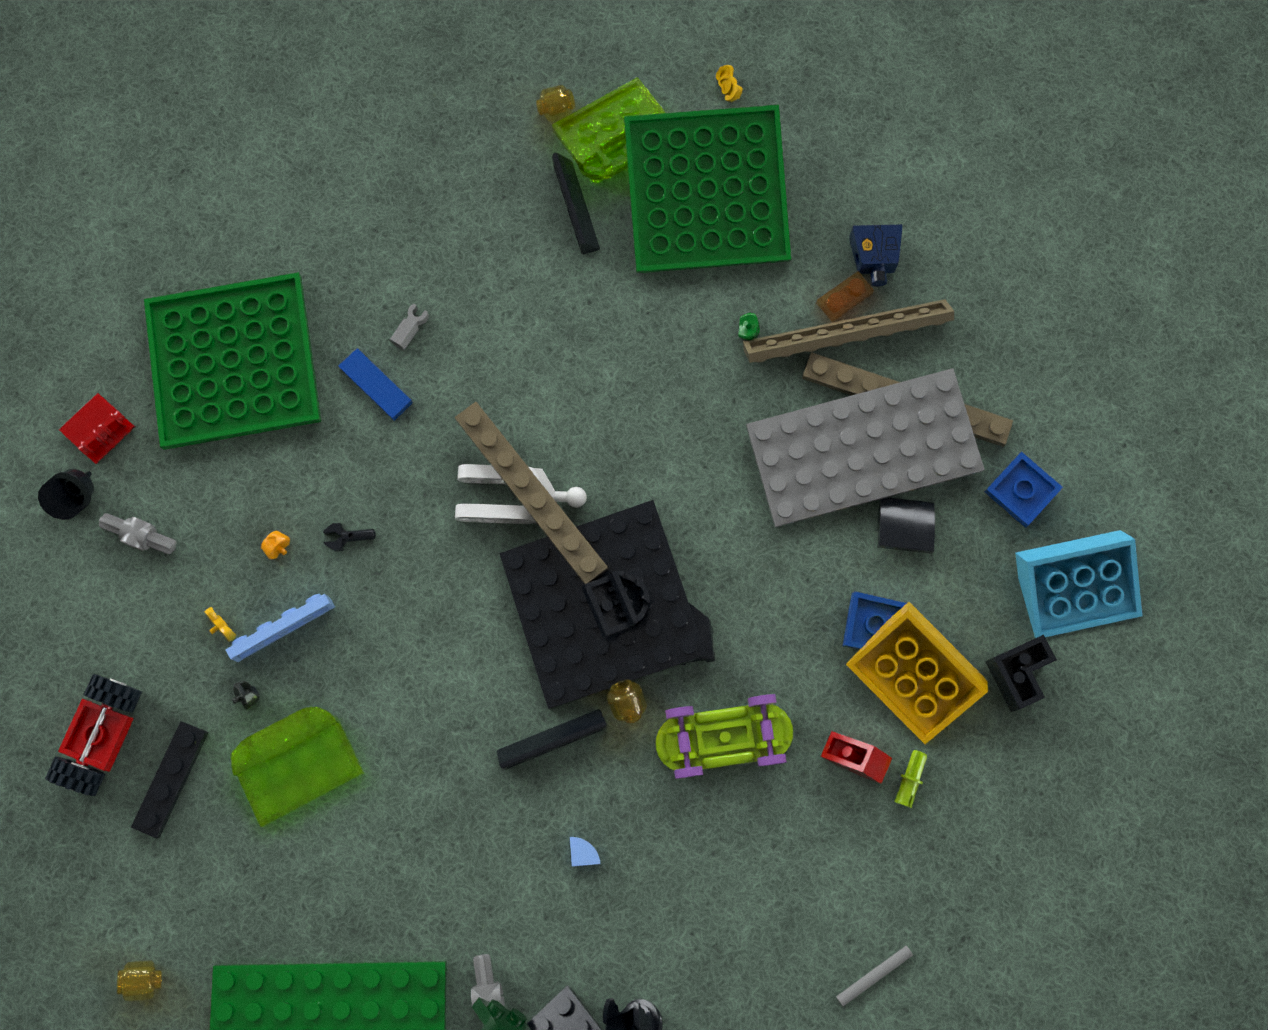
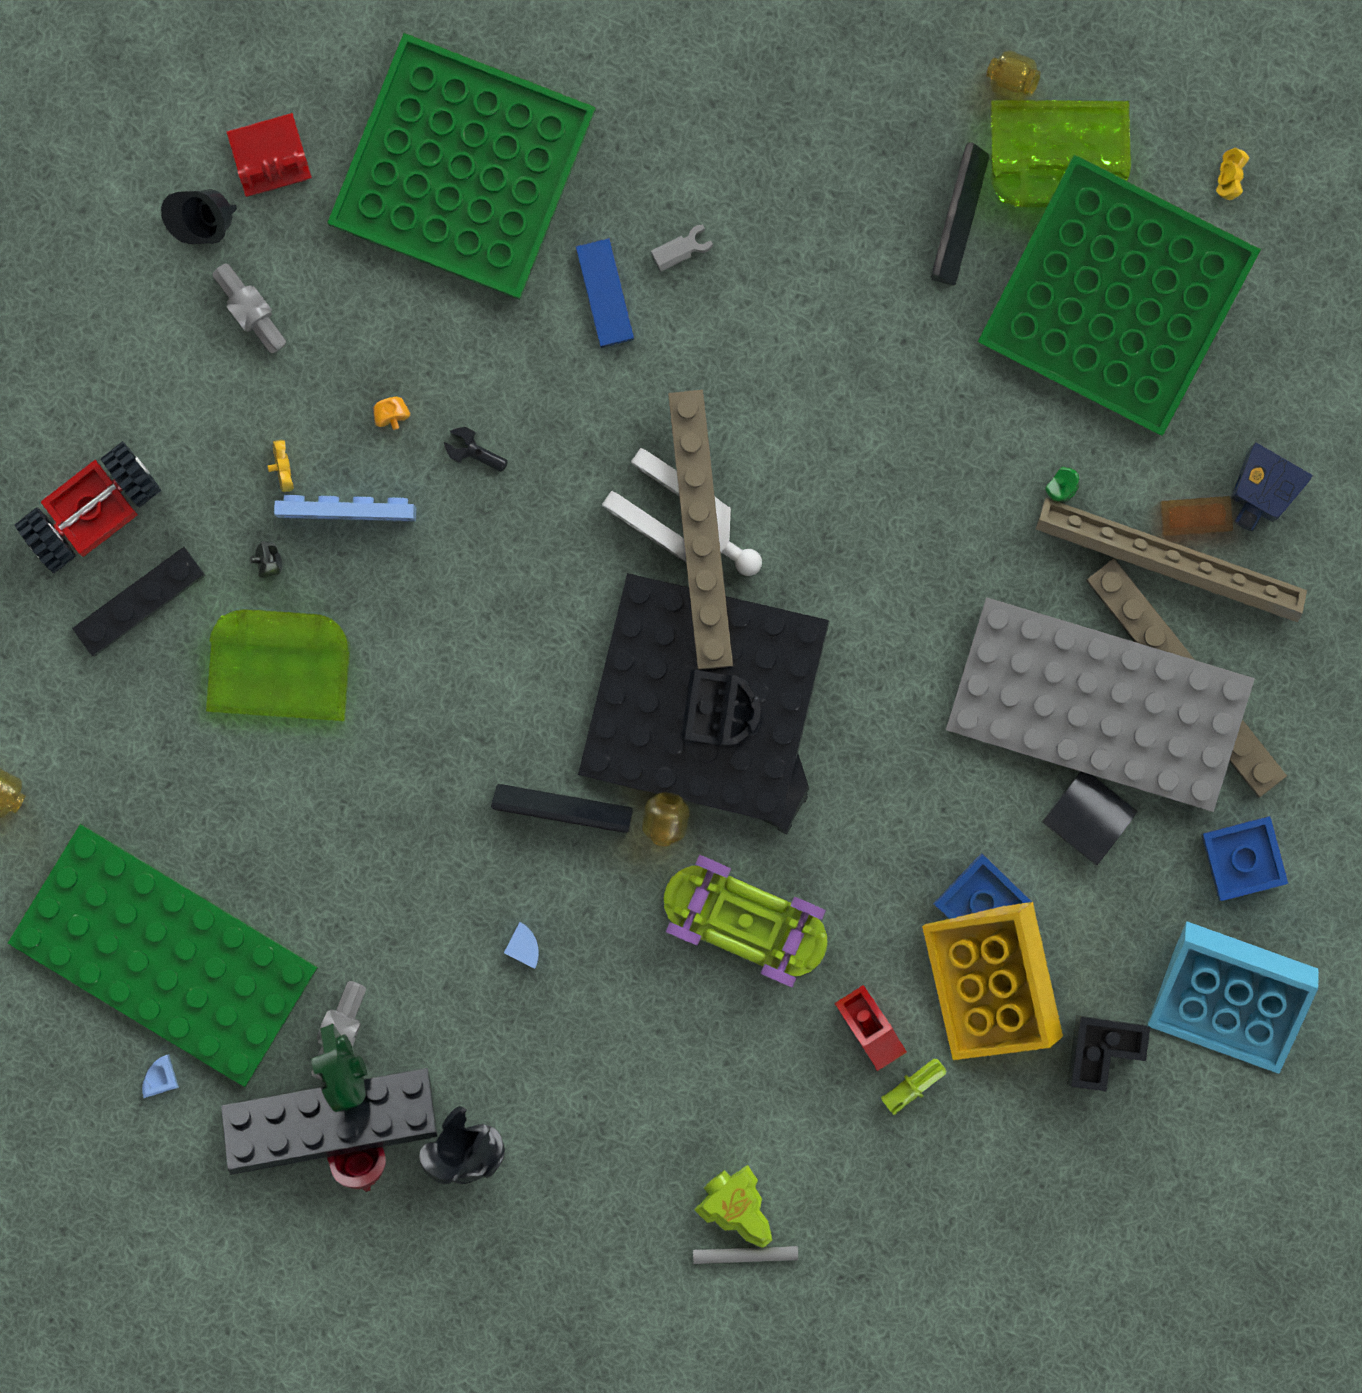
camera: 35 degrees right, 10 degrees up
(844, 944) = (736, 1206): none -> lime rock

